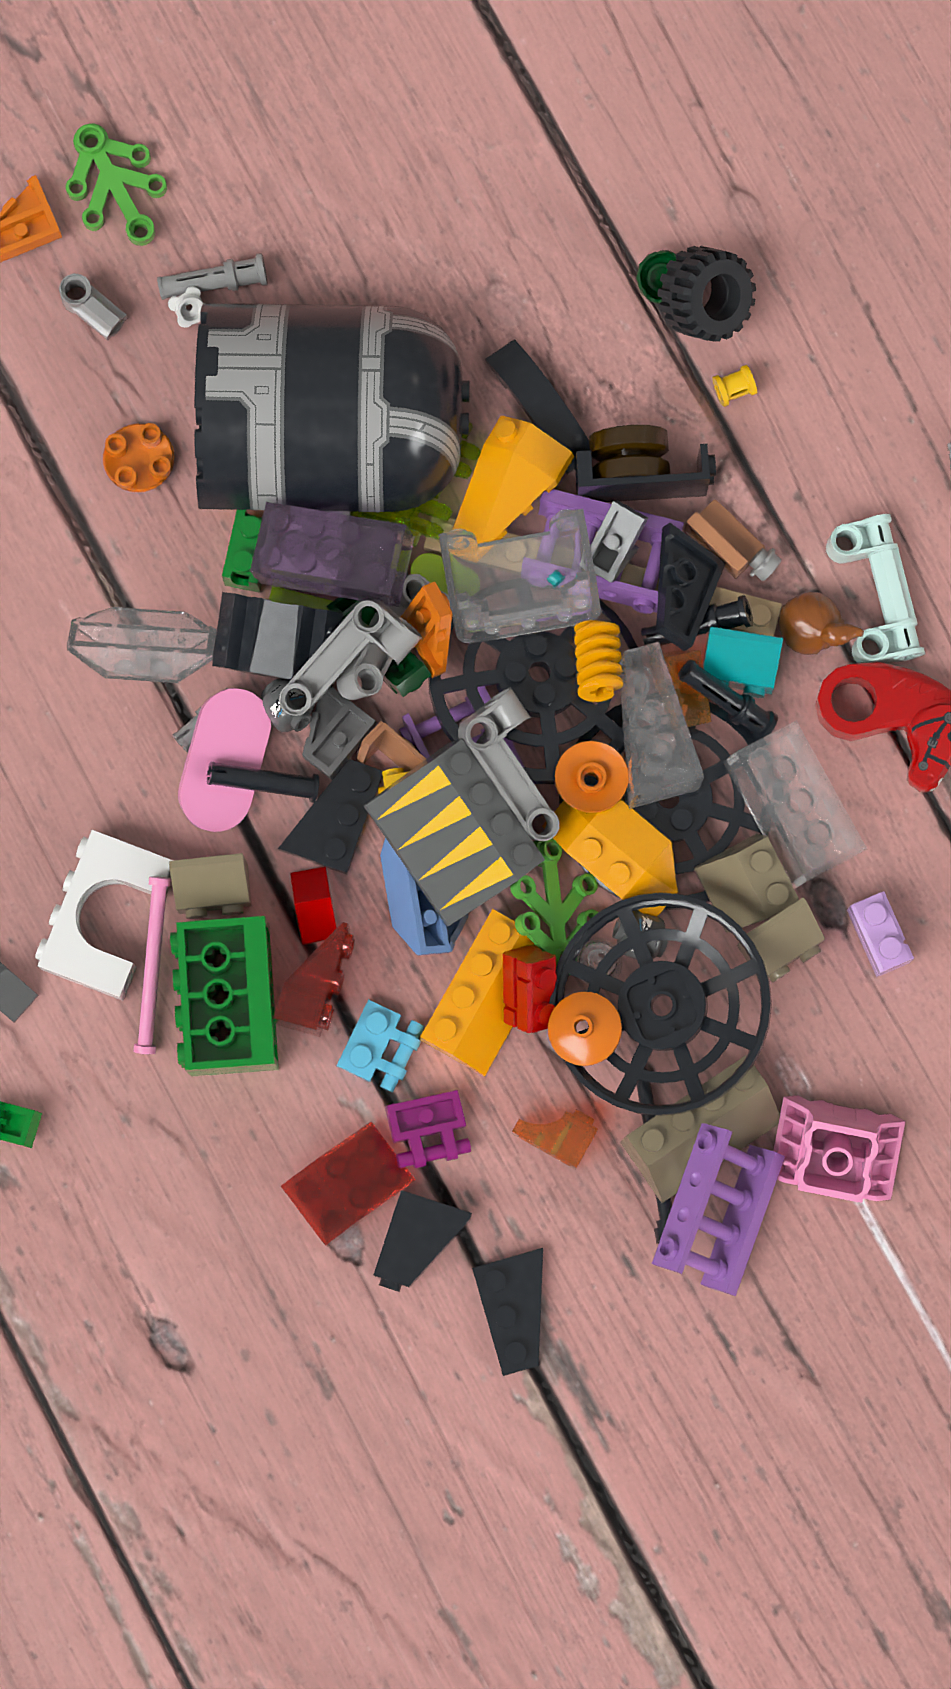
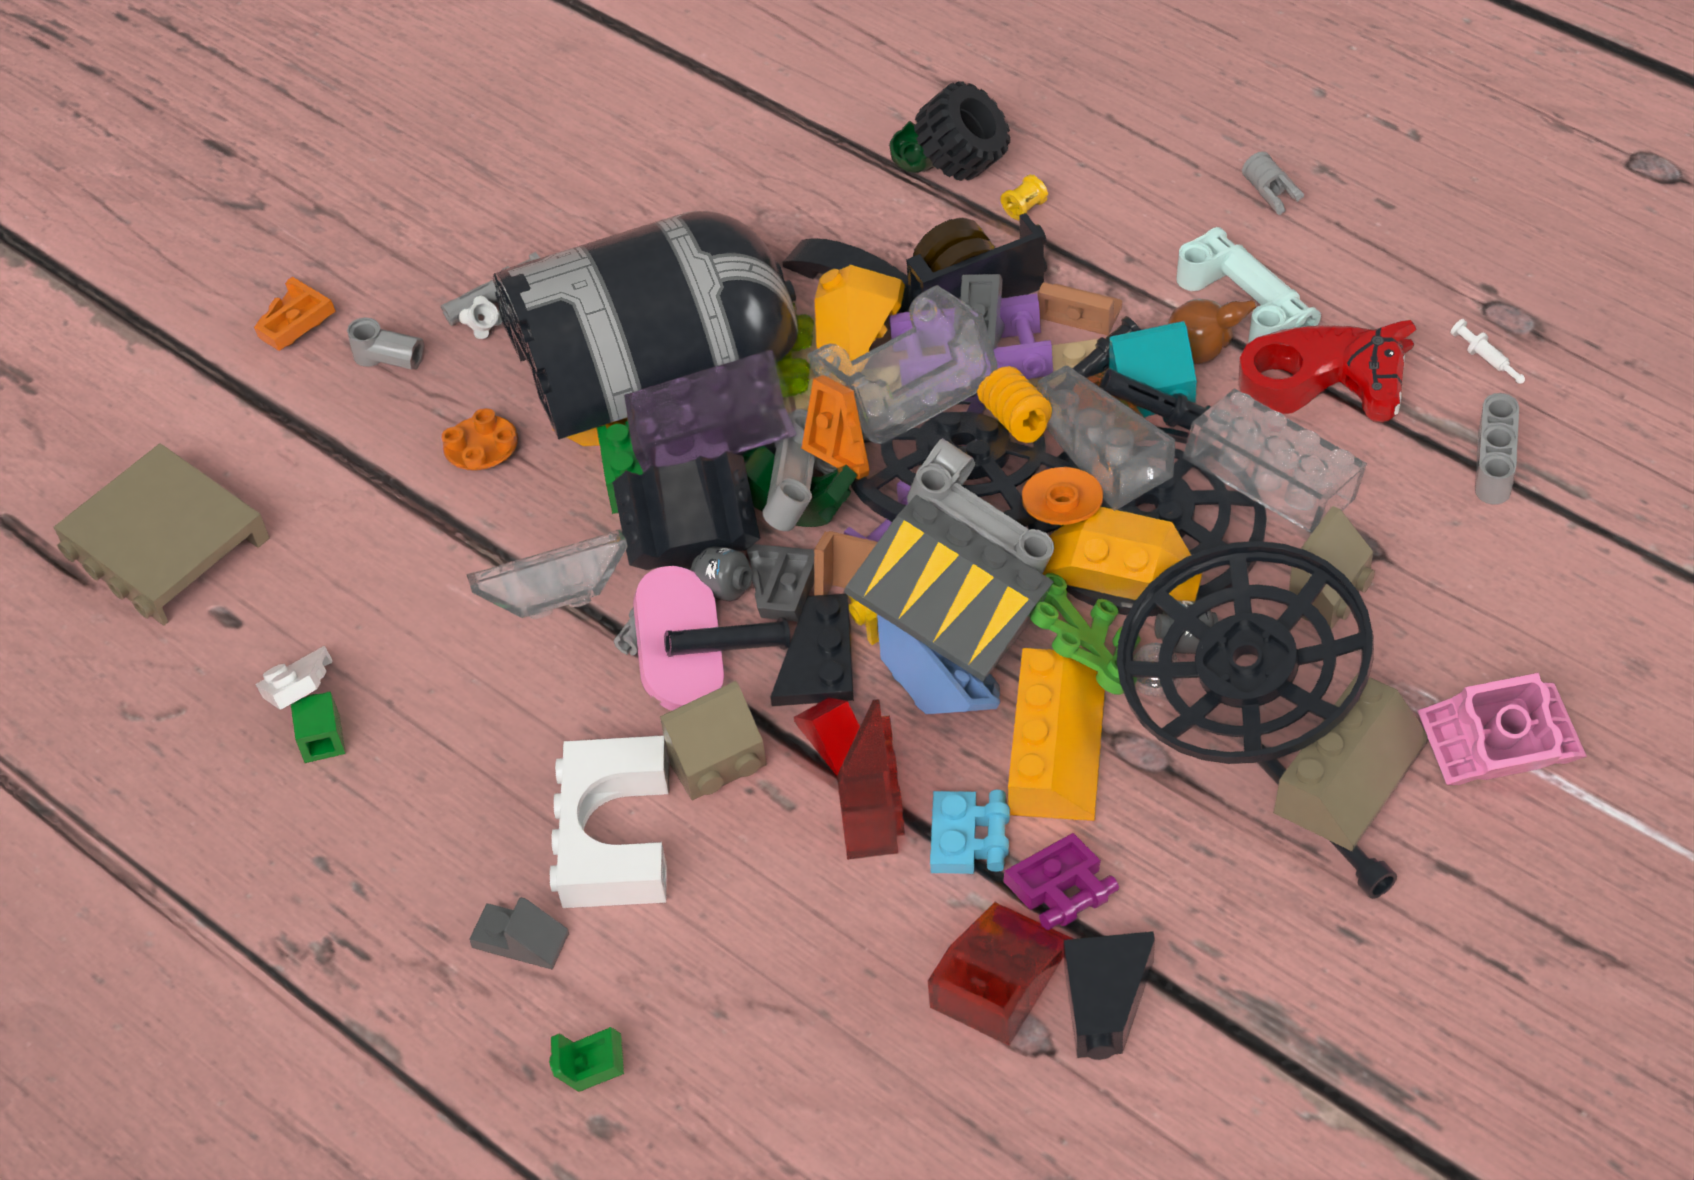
camera: 20 degrees left, 30 degrees down
(112, 179) = (339, 239): bright green plant -> none
(152, 965) = (709, 927): bright pink bar -> none
(246, 1011) = (779, 835): green brick -> none
(347, 641) = (799, 445): light grey piece -> none
(512, 1307) = (1250, 1023): black wing -> none
(527, 988) = (1099, 702): red brick -> none
(555, 578) = (939, 357): teal piece -> none
(562, 1139) = (1205, 837): clear orange arch -> none
(602, 1034) = (1179, 718): orange dish -> none
(685, 586) = (1065, 329): black wing -> none
(741, 1221) = (1442, 817): medium lavender fence -> none
(747, 881) = (1267, 517): dark tan slope -> none
(764, 563) = (1129, 305): light grey plate -> none
(880, 934) = (1424, 536): lavender brick -> none

